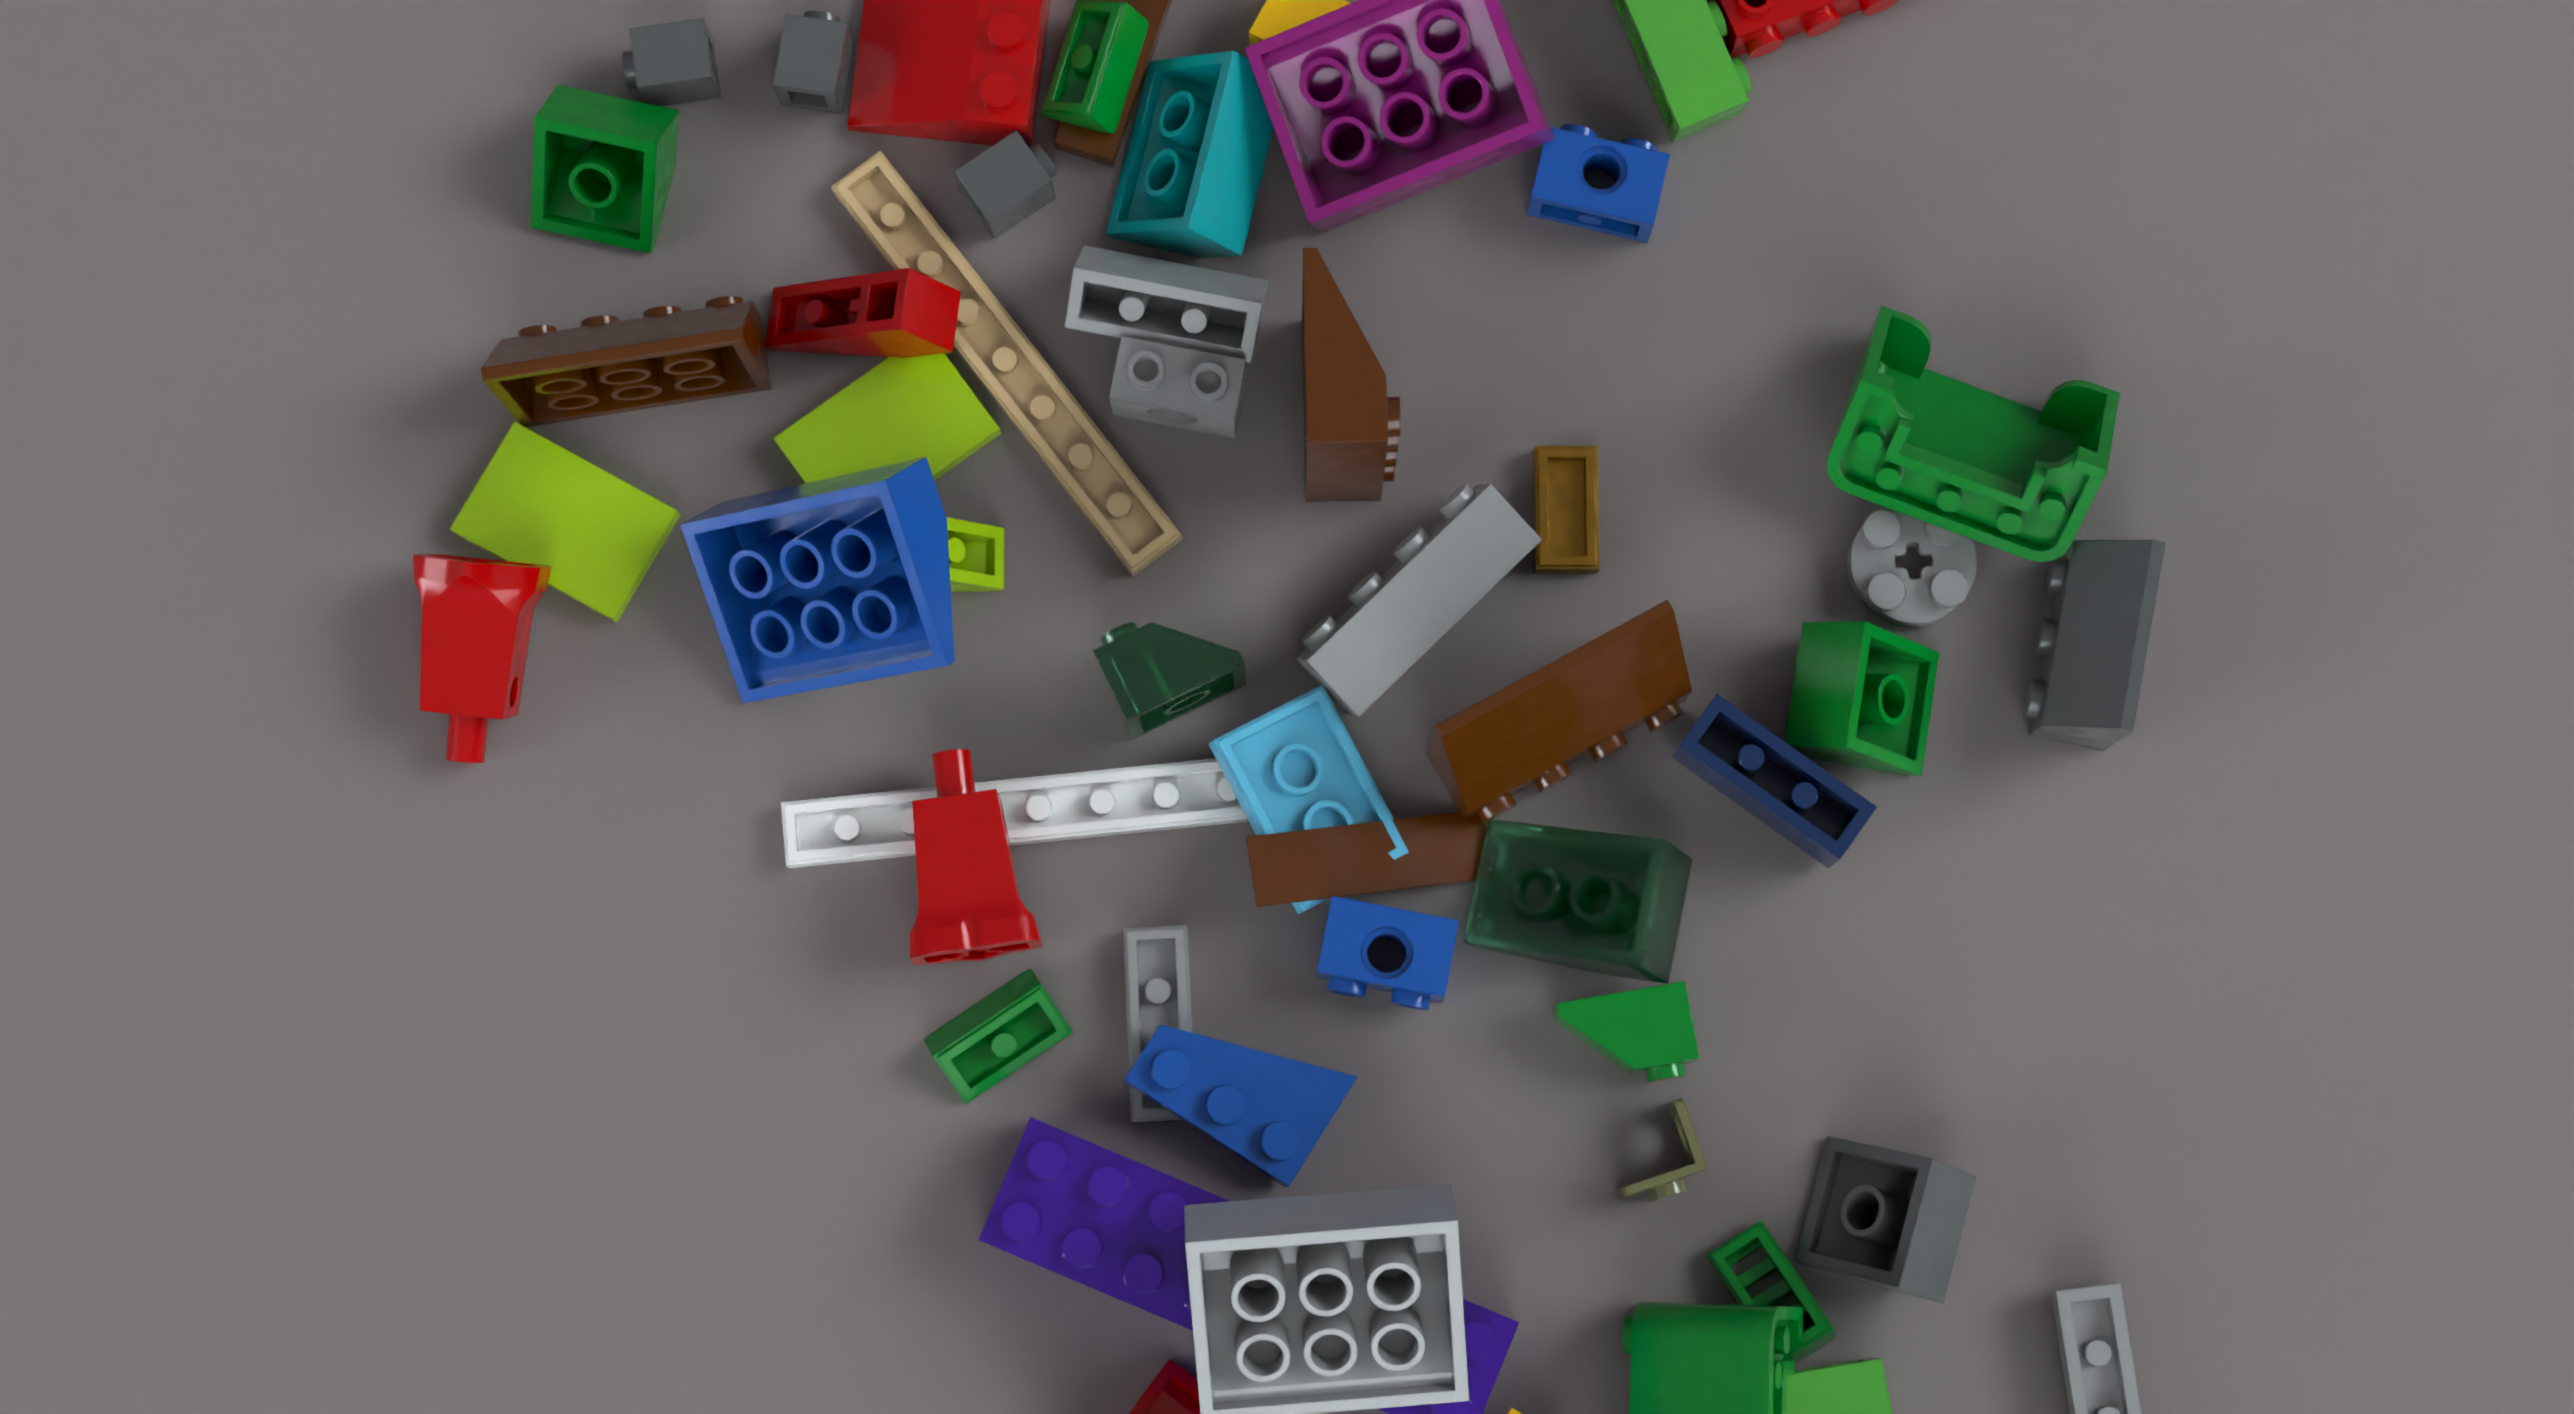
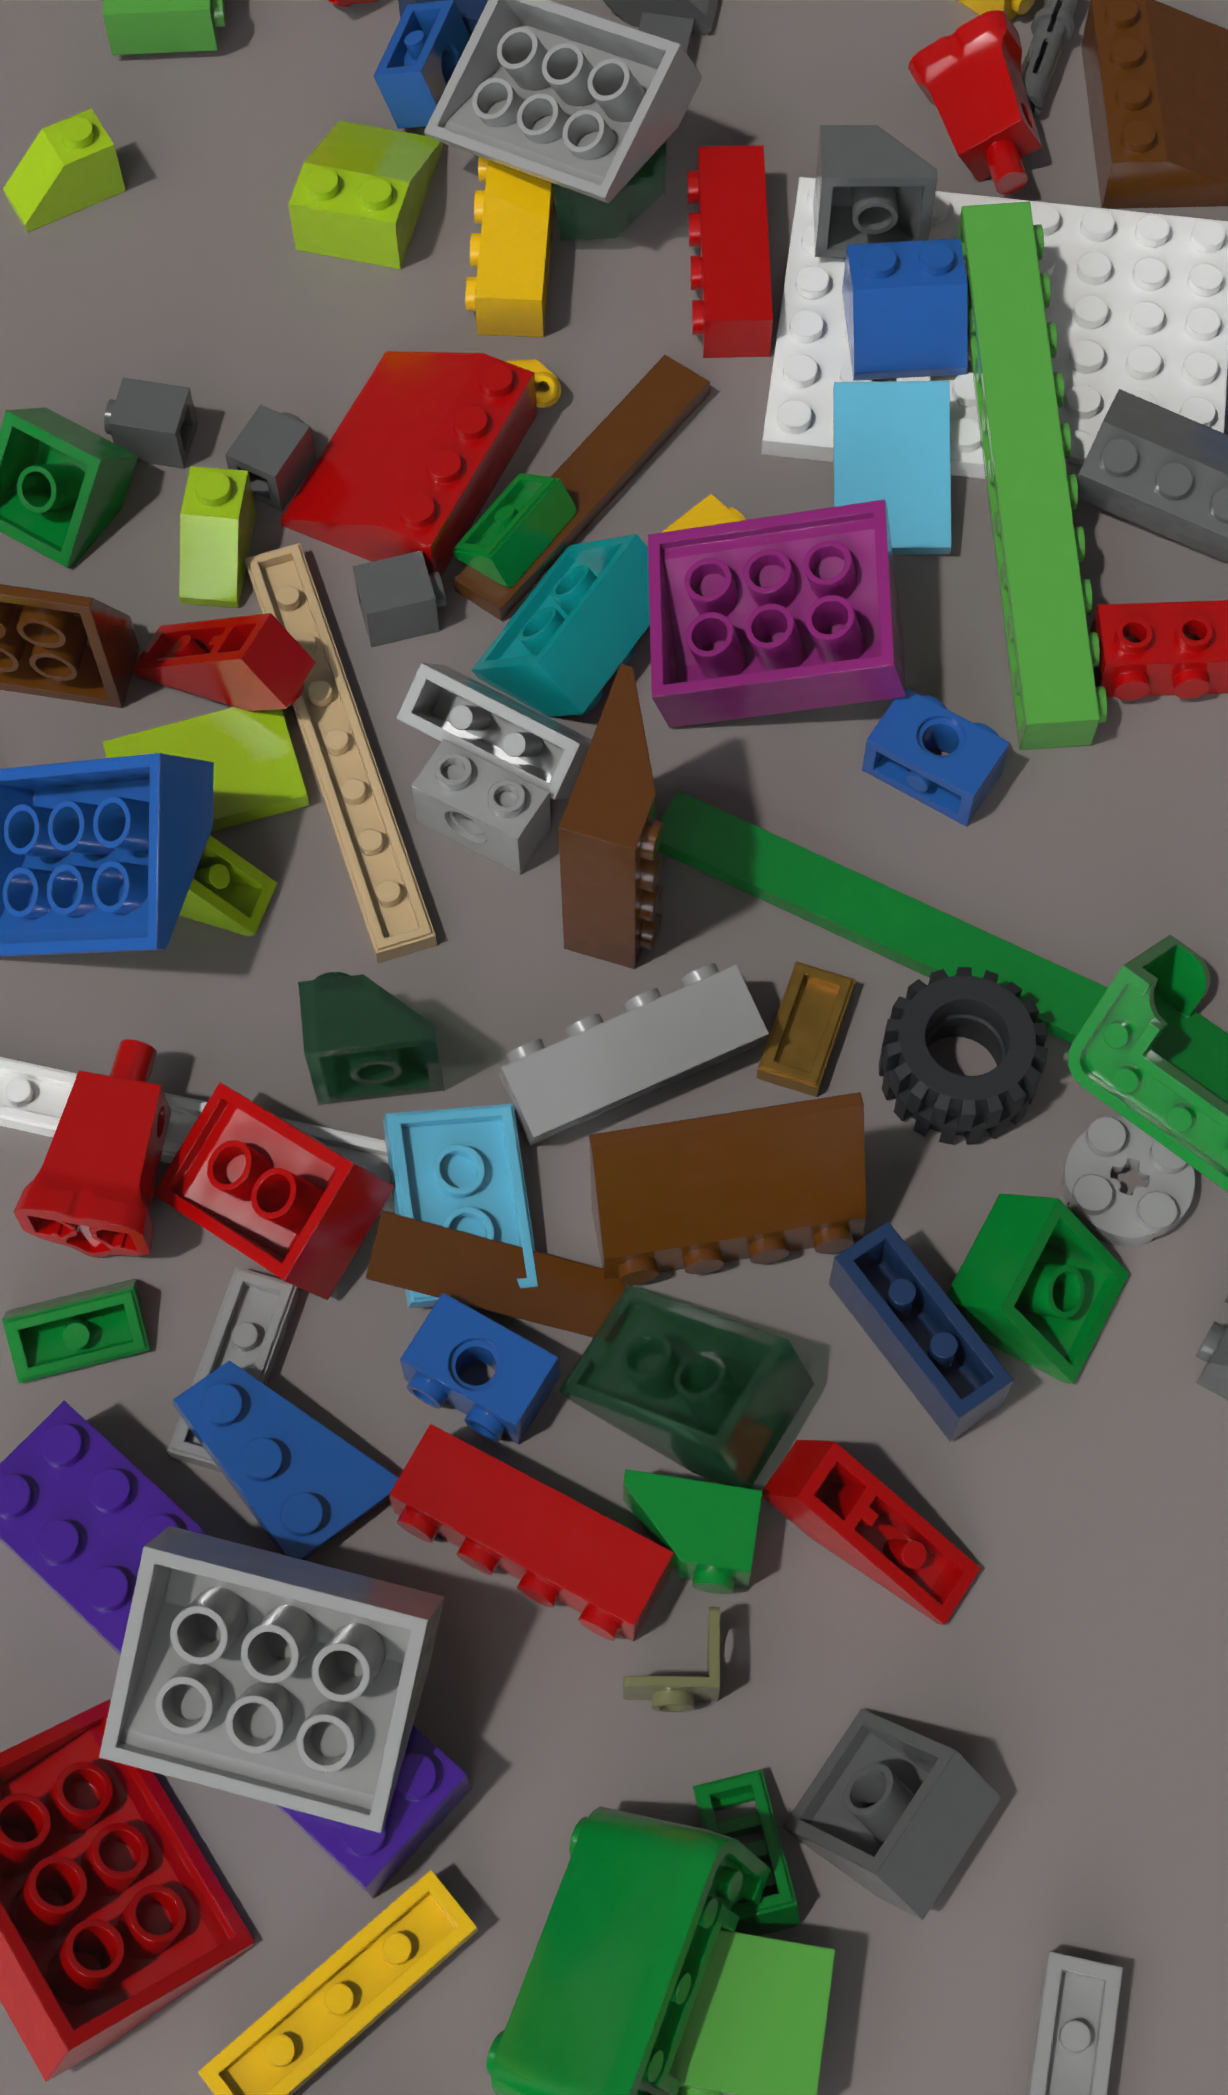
camera: 20 degrees right, 15 degrees down
(794, 175) = (215, 536): none -> lime slope
(1133, 849) = (273, 1192): none -> red slope
(1489, 1085) = (530, 1533): none -> red brick
(1605, 373) = (868, 910): none -> green tile
(1741, 447) = (971, 1010): none -> black tyre
(1784, 975) = (869, 1527): none -> red slope

